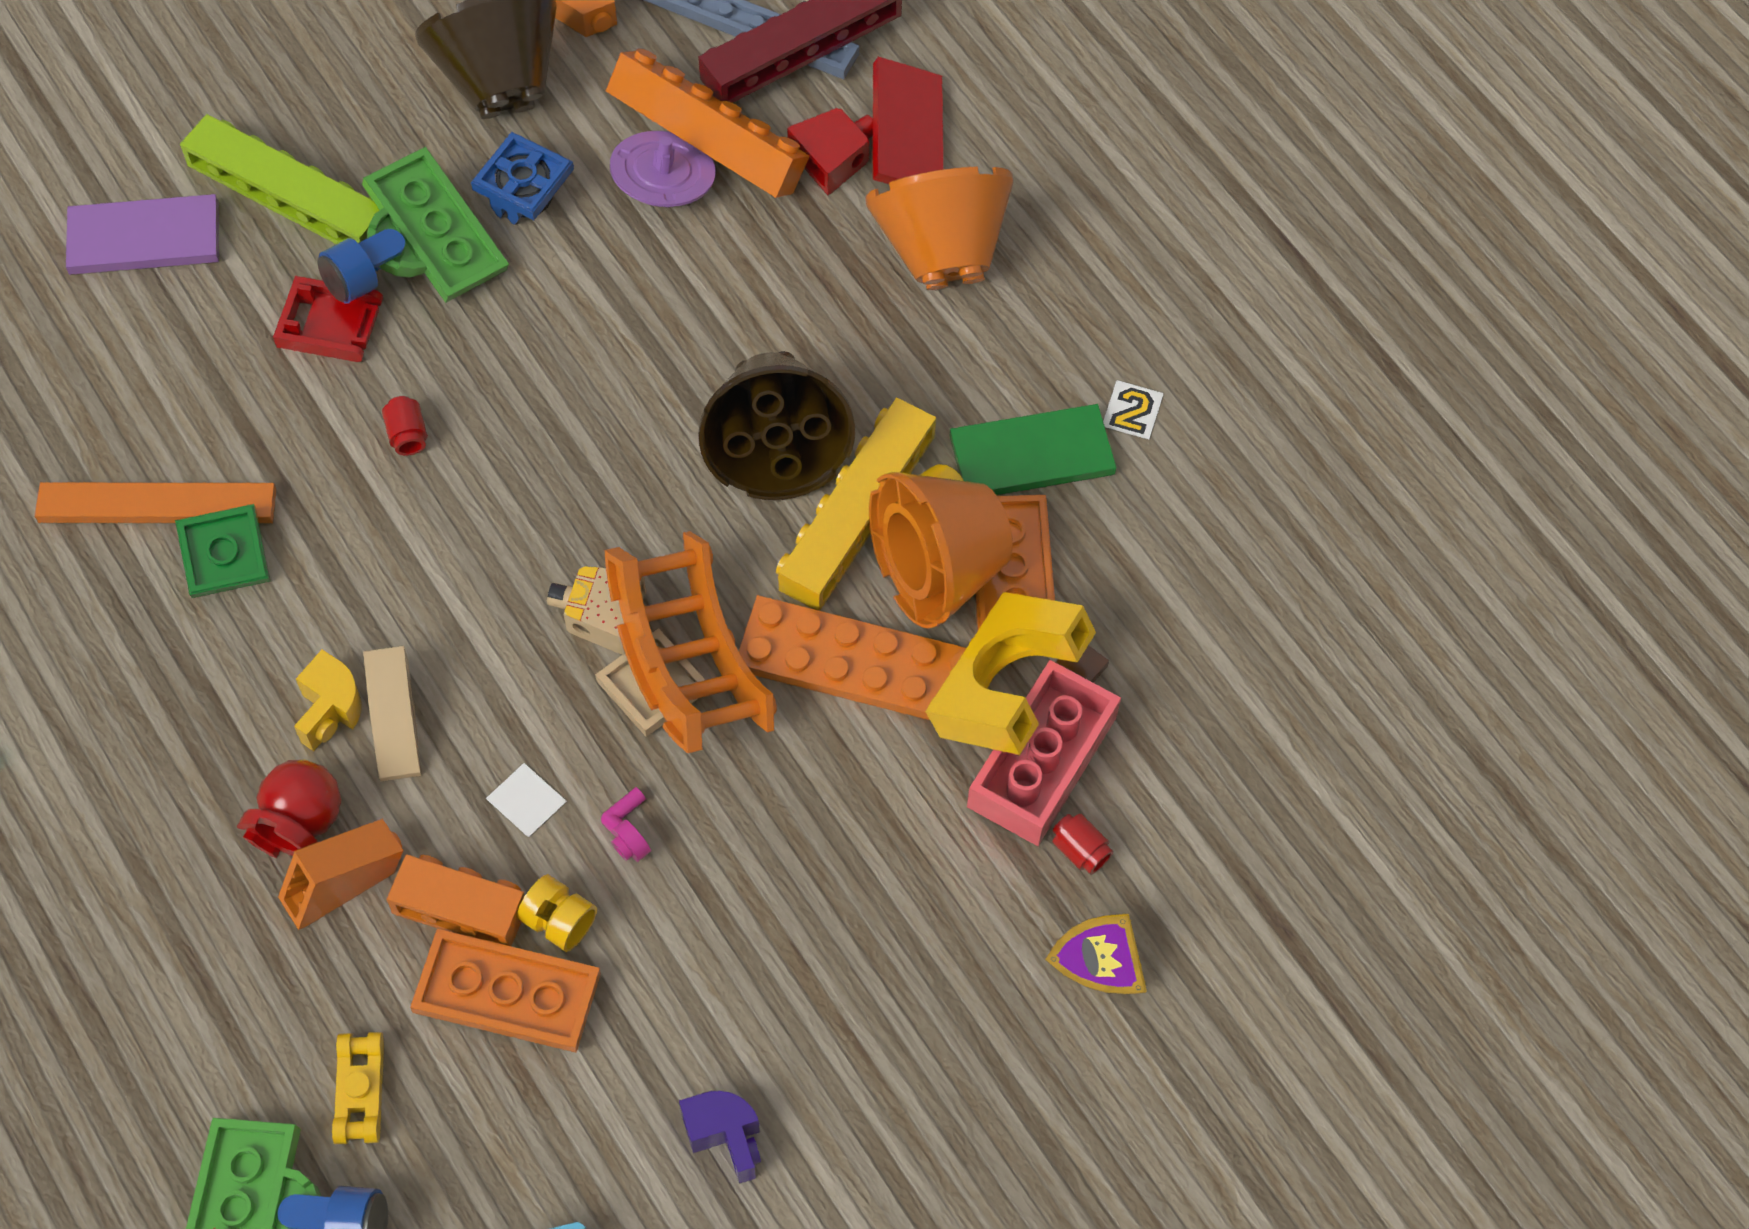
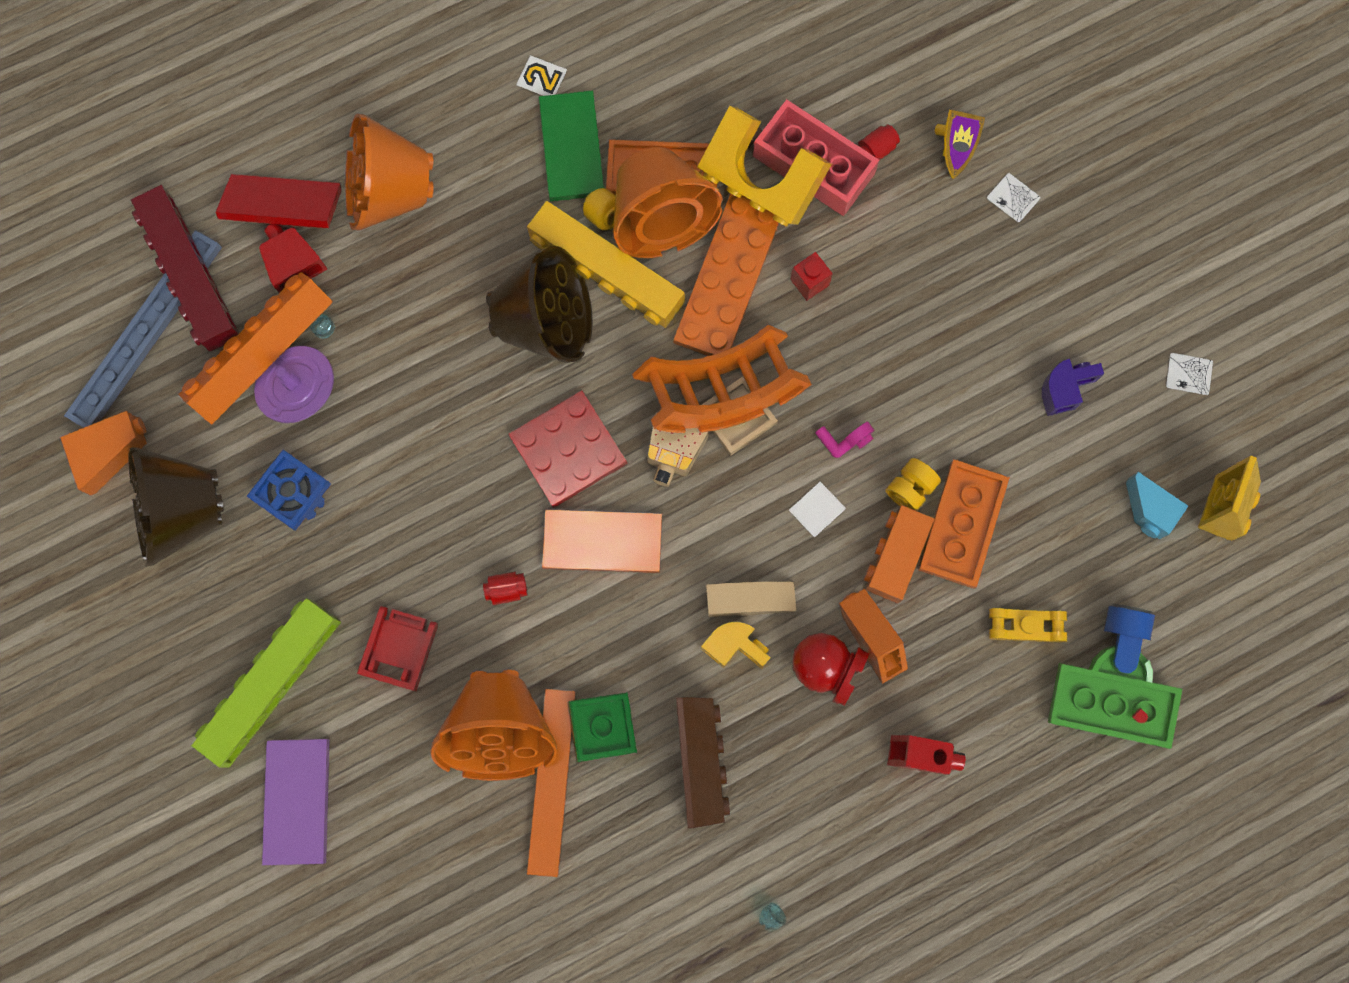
camera: 80 degrees left, 15 degrees up
(164, 649) = (701, 761): none -> reddish brown slope
(169, 942) = (924, 755): none -> red torso
(218, 414) = (494, 730): none -> orange cone
(416, 232) = (336, 572): bright green plate -> none
(471, 535) = (602, 541): none -> tile
(597, 484) = (567, 449): none -> plate
(744, 197) = (325, 328): none -> clear light blue hinge
(863, 761) = (811, 276): none -> red brick
(1027, 1051) = (1013, 197): none -> white sticker

